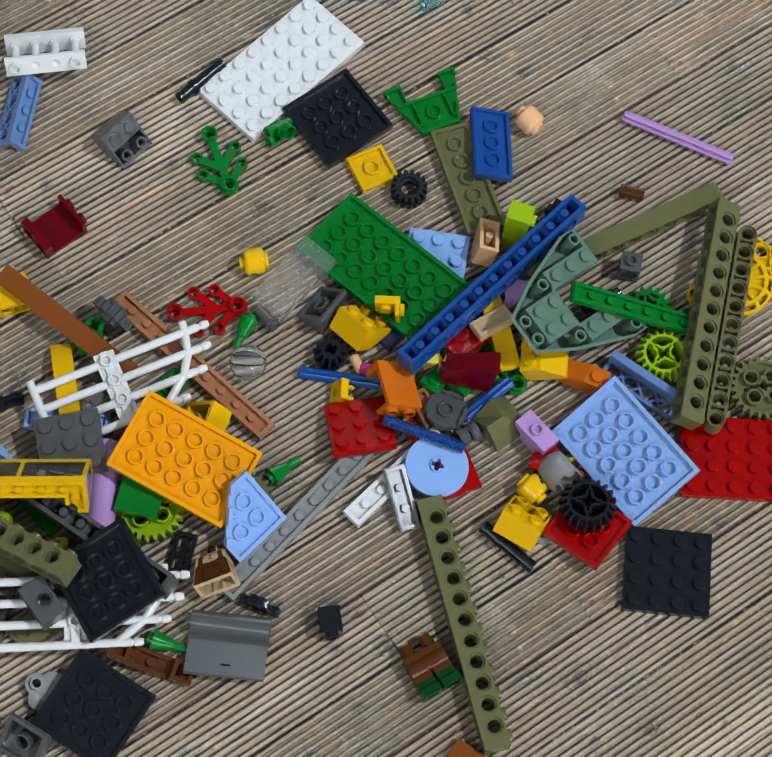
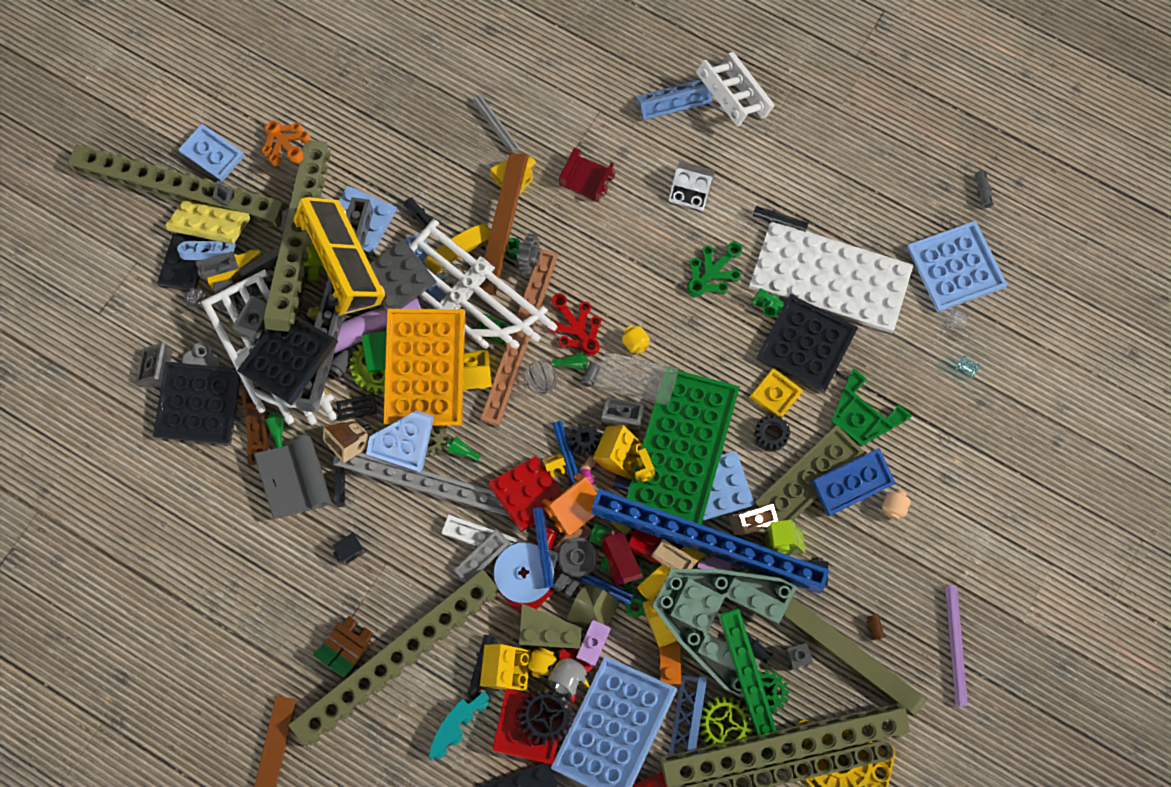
camera: 70 degrees right, 5 degrees up
(503, 470) = (544, 630): none -> olive wedge
(556, 600) = (450, 730): none -> teal slope

